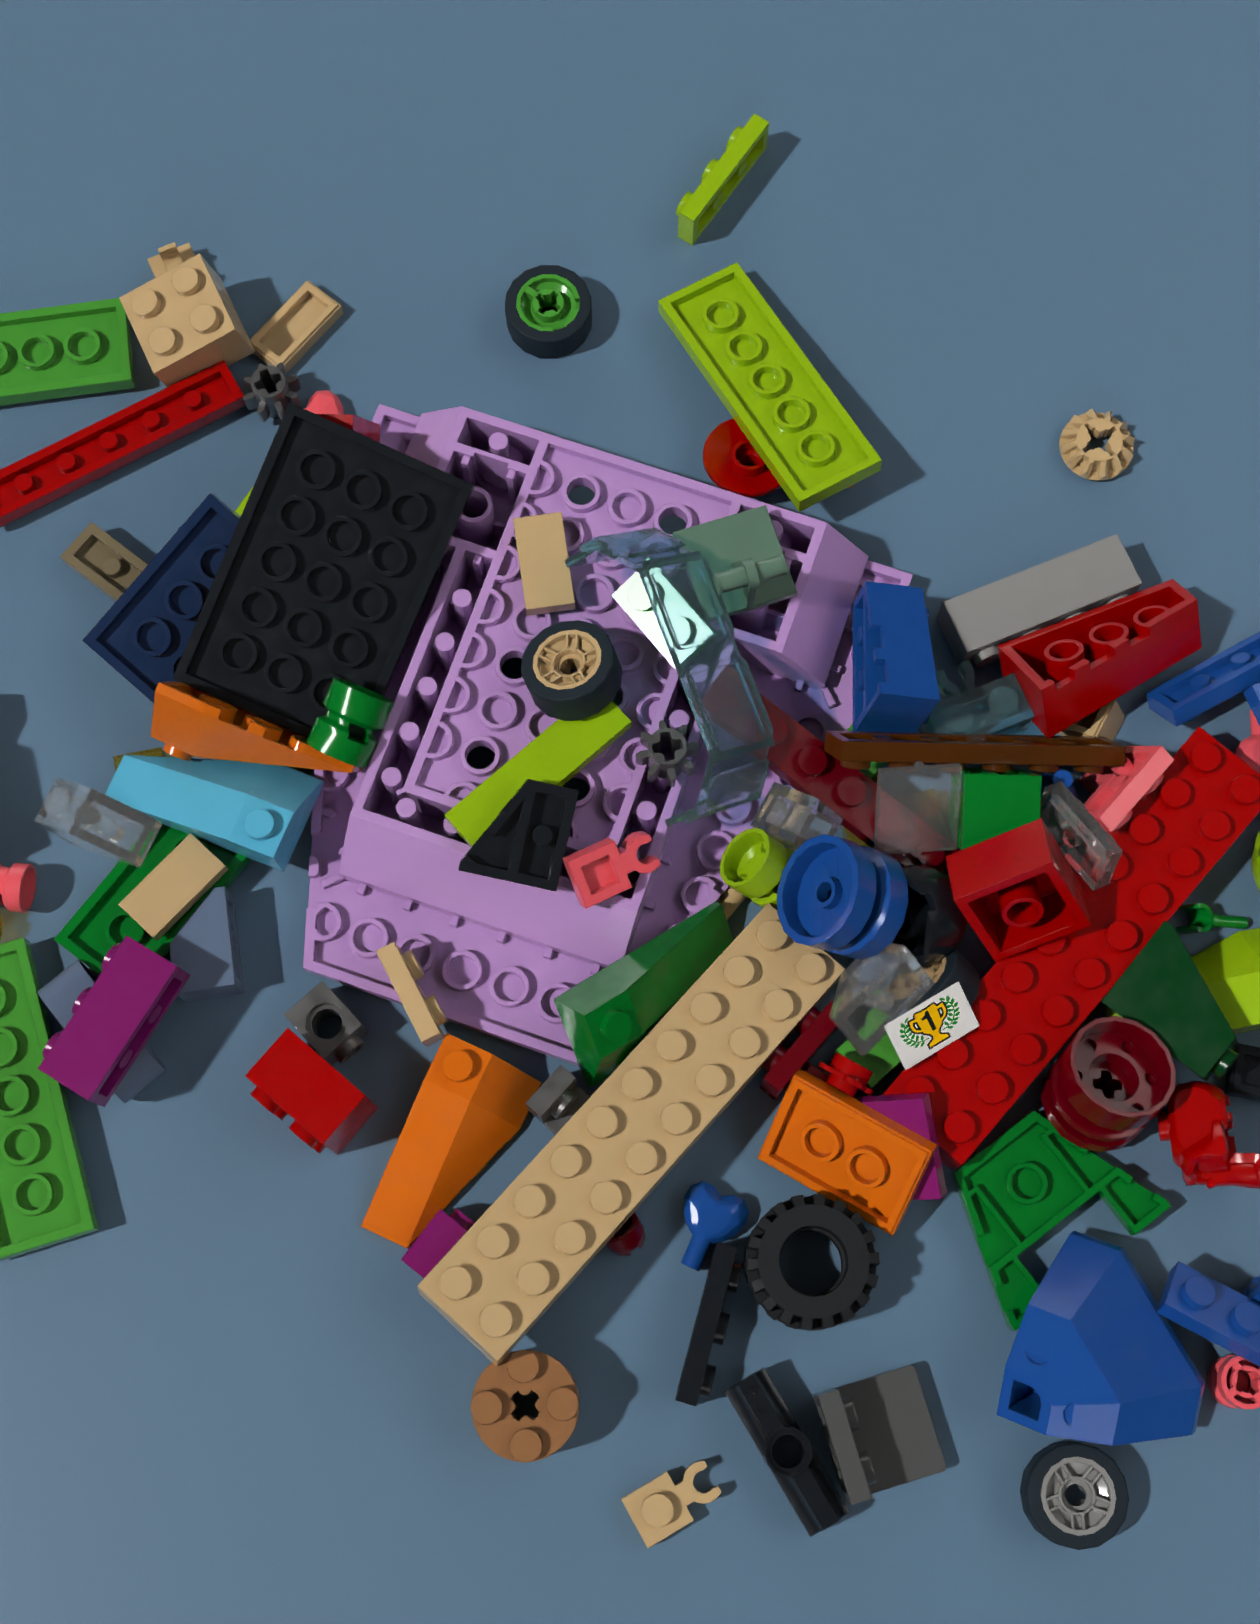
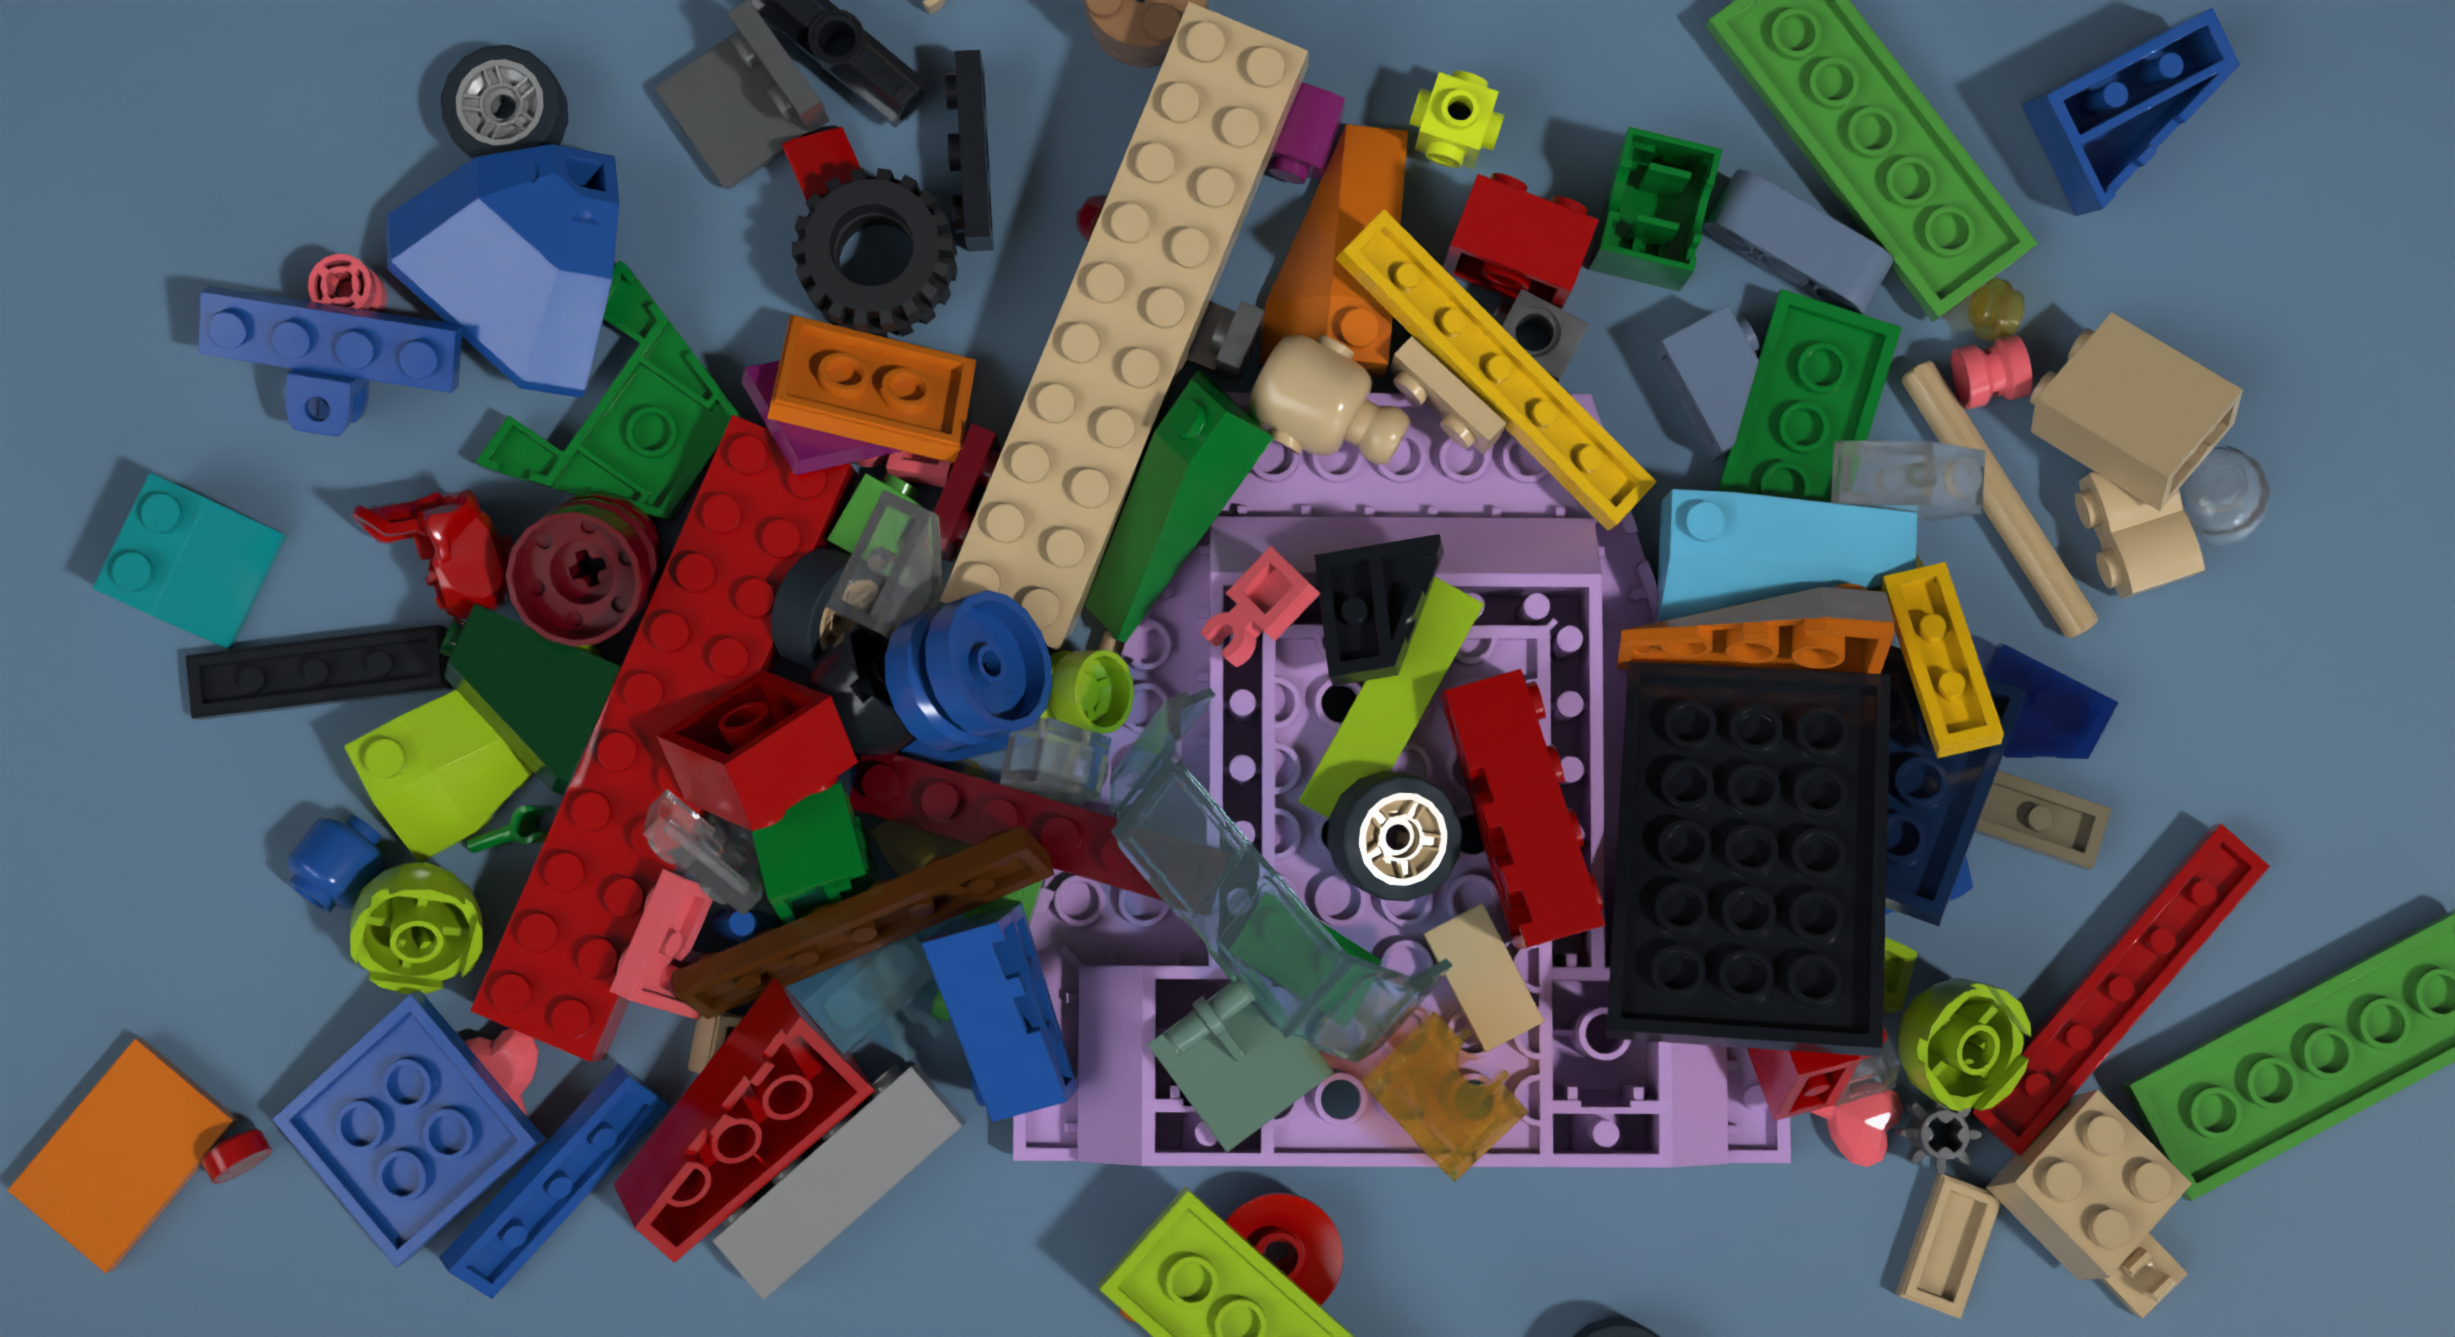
camera: 155 degrees right, 10 degrees up
(37, 785) = (2003, 503): none -> tan axle
(60, 632) = (2058, 713): none -> clear blue wing
(113, 1021) = (1783, 241): magenta brick -> none
(131, 679) = (1942, 660): none -> yellow plate
(173, 887) = (1784, 432): tan tile -> none
(196, 1090) = (1655, 209): none -> green piece
(230, 434) = (1964, 1043): none -> lime cylinder
(339, 1218) = (1451, 140): none -> neon yellow brick
(350, 723) = (1645, 685): green wheel -> none
(369, 1001) = (1496, 370): none -> yellow plate
(474, 653) = (1521, 809): none -> red wedge
(508, 1019) = (1317, 400): none -> tan piece
(606, 480) = (1433, 1102): none -> clear yellow piece
(677, 744) = (1244, 753): flat silver gear -> none
(710, 1220) = (1008, 270): blue rock -> none
(828, 1356) = (819, 159): none -> red slope
(847, 1075) = (897, 470): red plate -> none
(917, 808) = (910, 816): clear piece -> none
(931, 1025) = (814, 556): white sticker -> none

